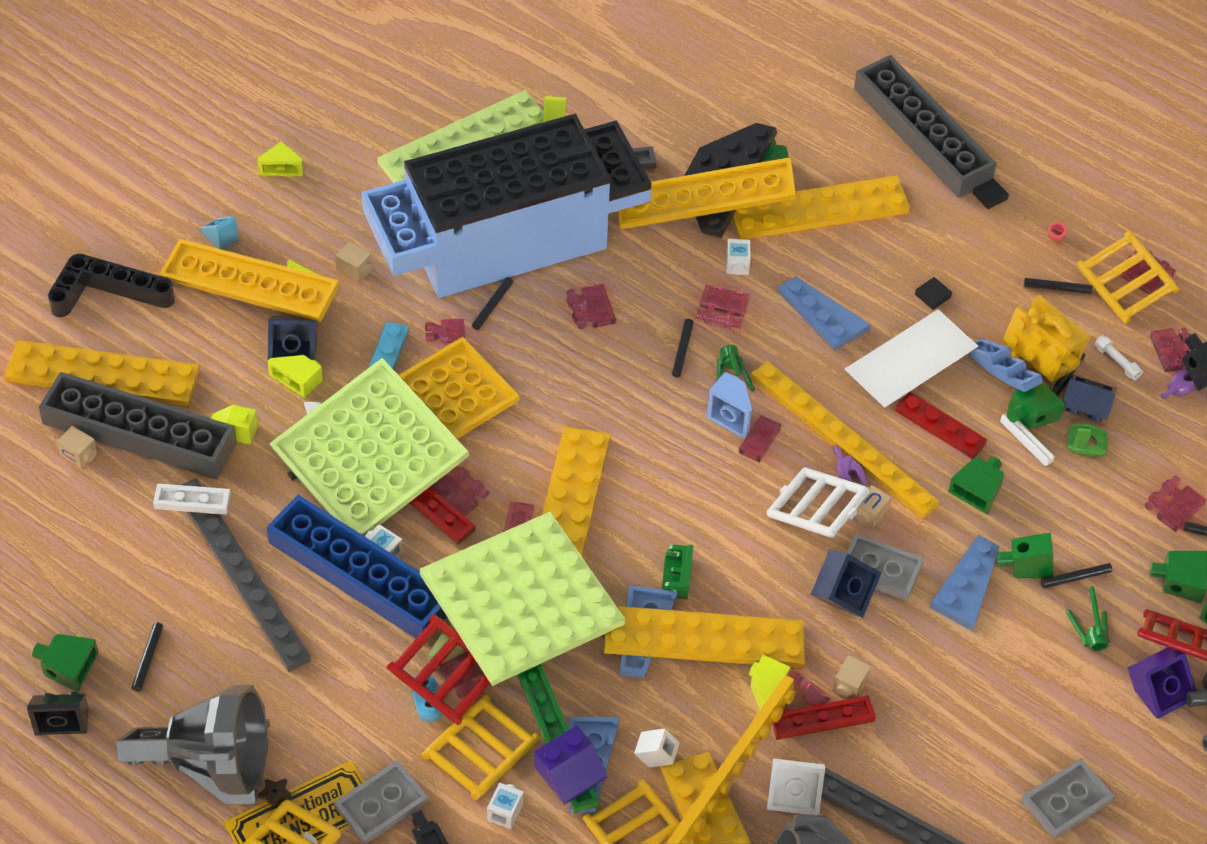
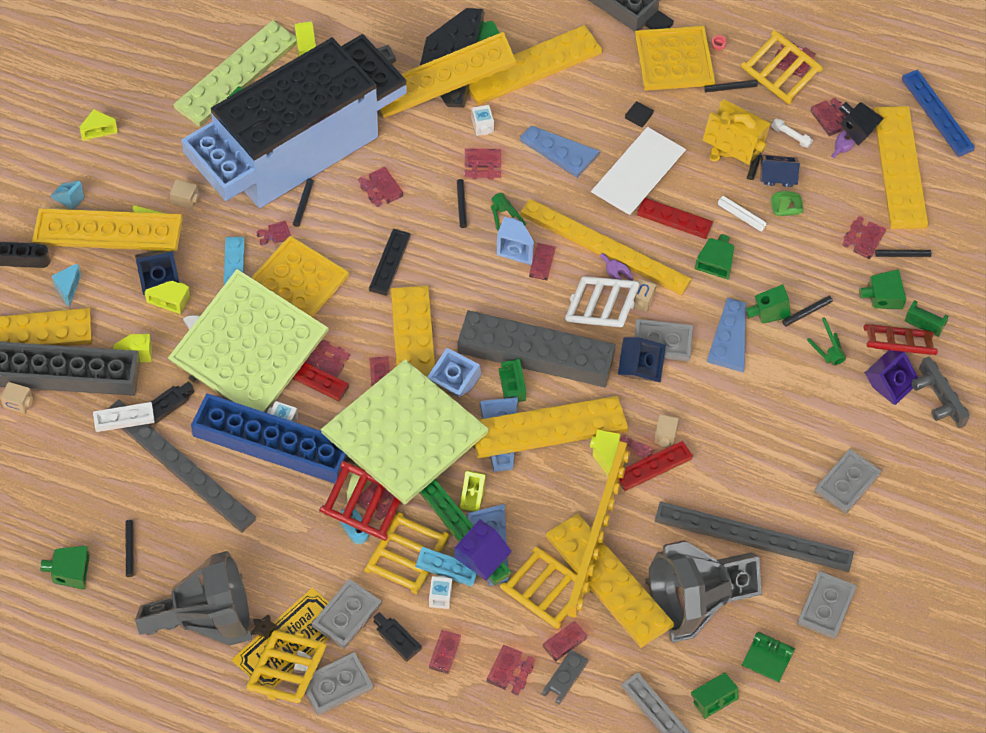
camera: 15 degrees left, 5 degrees up
(58, 713) = (78, 609): black slope -> none
(183, 330) = (67, 282): none -> medium azure slope
(255, 495) = (171, 400): none -> black hinge
(519, 773) = (445, 566): none -> medium azure plate
(573, 396) = (389, 262): none -> black tile
(585, 691) = (473, 491): none -> neon yellow slope
(608, 544) = (455, 373): none -> light blue slope
(657, 748) = (540, 520): white brick -> none
(720, 539) = (537, 347): none -> dark grey brick
(795, 787) = (651, 523): white tile -> none
(996, 237) = (674, 58): none -> yellow plate
(1000, 363) = (714, 162): medium blue slope -> none
(1035, 407) = (741, 185): green torso -> none

